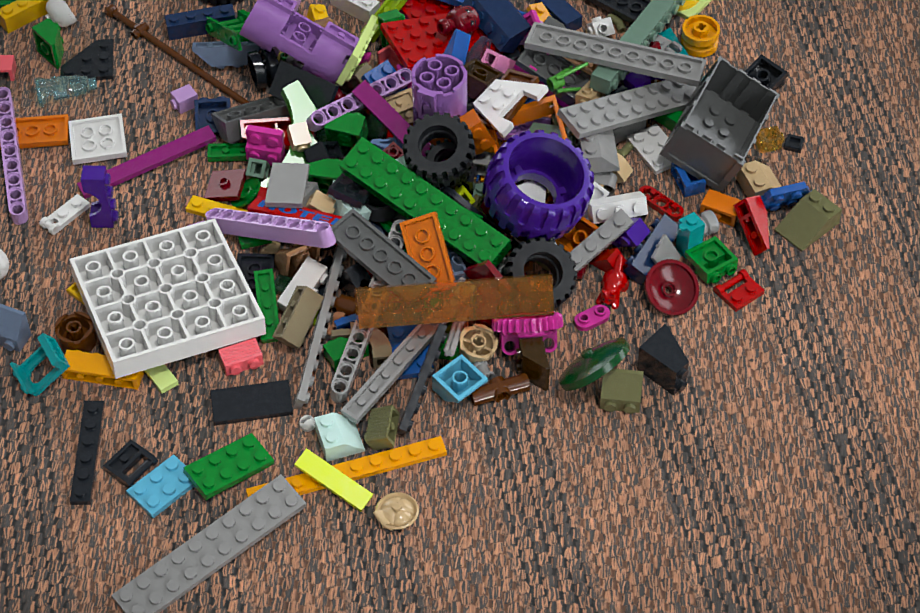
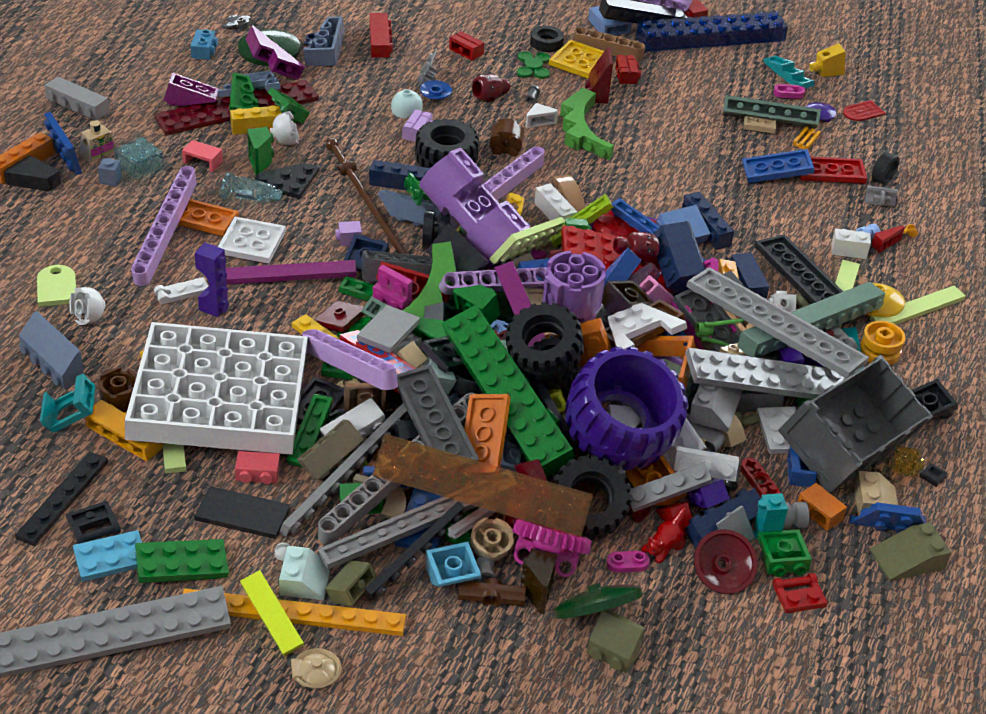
camera: 20 degrees right, 10 degrees down
(299, 136) = (426, 291): brick -> none
(664, 361) = (676, 628): black slope -> none
(754, 222) = (848, 530): red slope -> none

